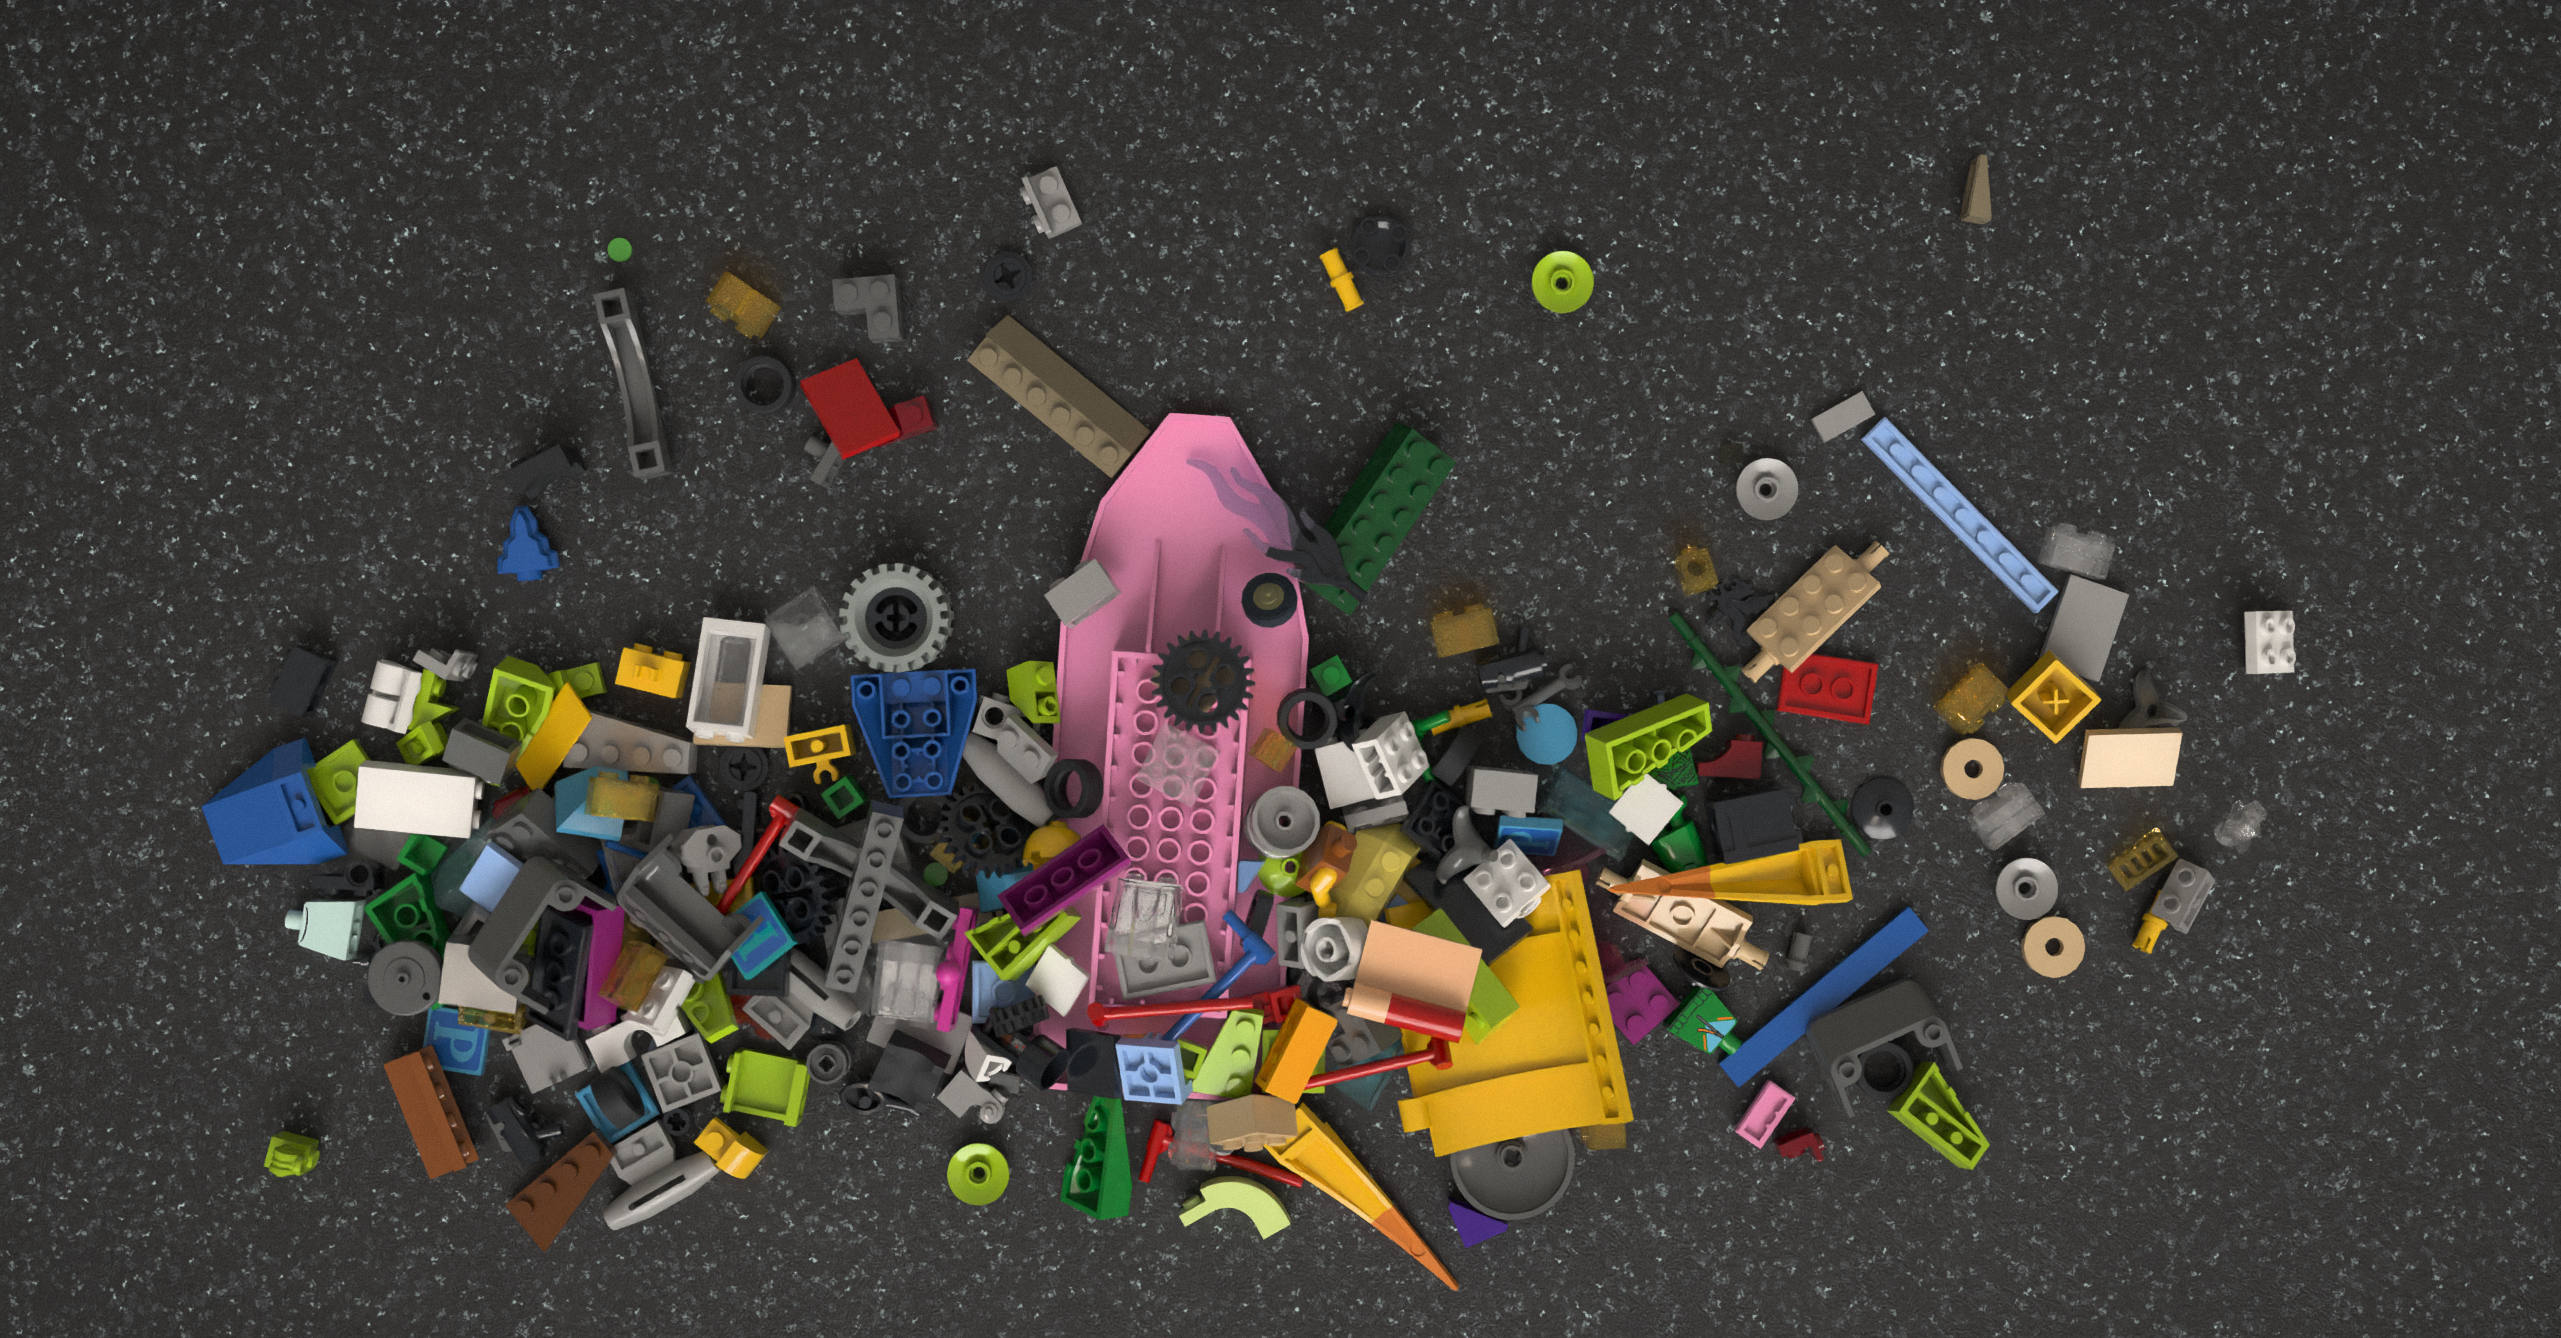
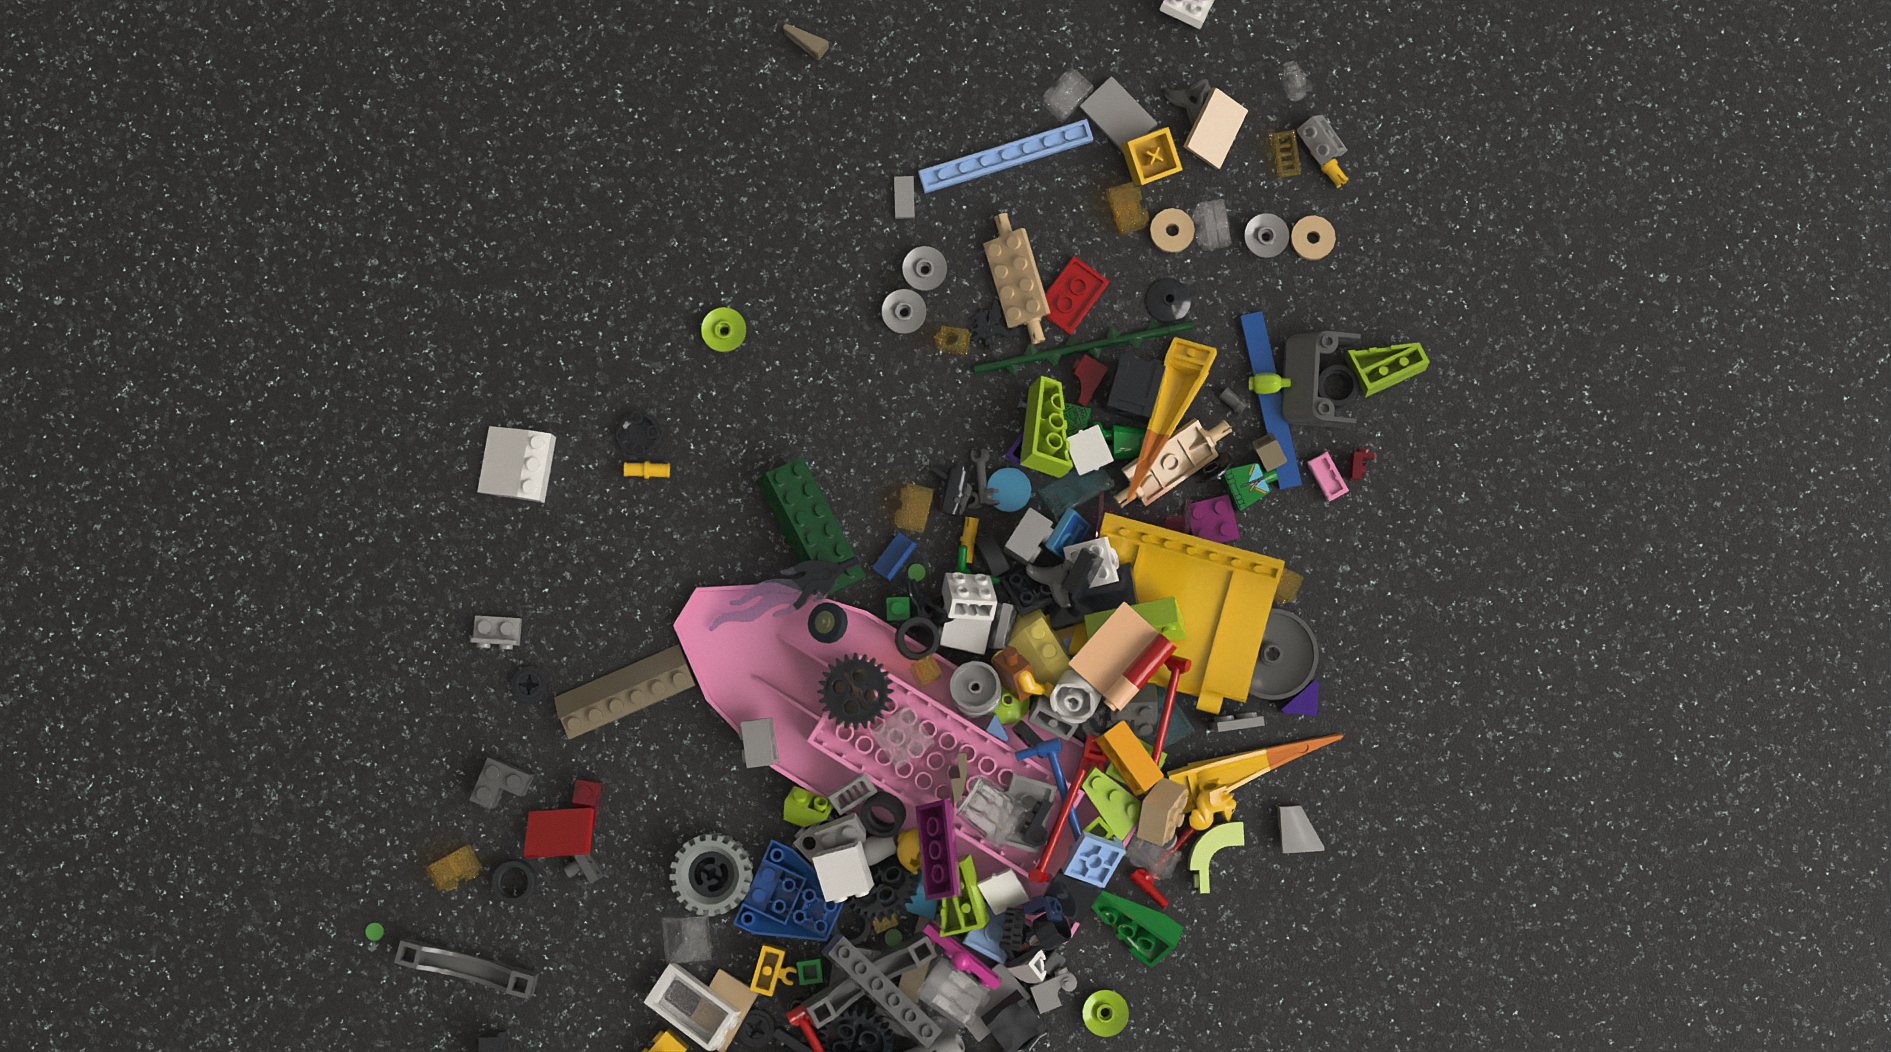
camera: 60 degrees left, 5 degrees down
(980, 777) = (843, 872): none -> white brick
(1060, 727) = (838, 802): none -> light grey slope
(1065, 1034) = (1042, 904): none -> dark blue bracket
(1158, 861) = (959, 783): none -> dark tan slope
(1173, 979) = (1040, 811): none -> black plate
(1266, 116) = (517, 463): none -> white slope
(1296, 1172) = (1212, 800): none -> yellow animal
(1313, 1292) = (1297, 831): none -> light grey slope
(1387, 673) = (916, 572): none -> bright green piece
(1392, 637) = (894, 556): none -> blue panel
(1410, 1162) = (1243, 720): none -> light grey plate
(1489, 880) = (1082, 574): none -> black panel
(1715, 487) = (901, 300): none -> light grey dish
(1758, 1028) = (1269, 452): none -> dark tan panel
(1842, 984) = (1268, 383): none -> lime plant

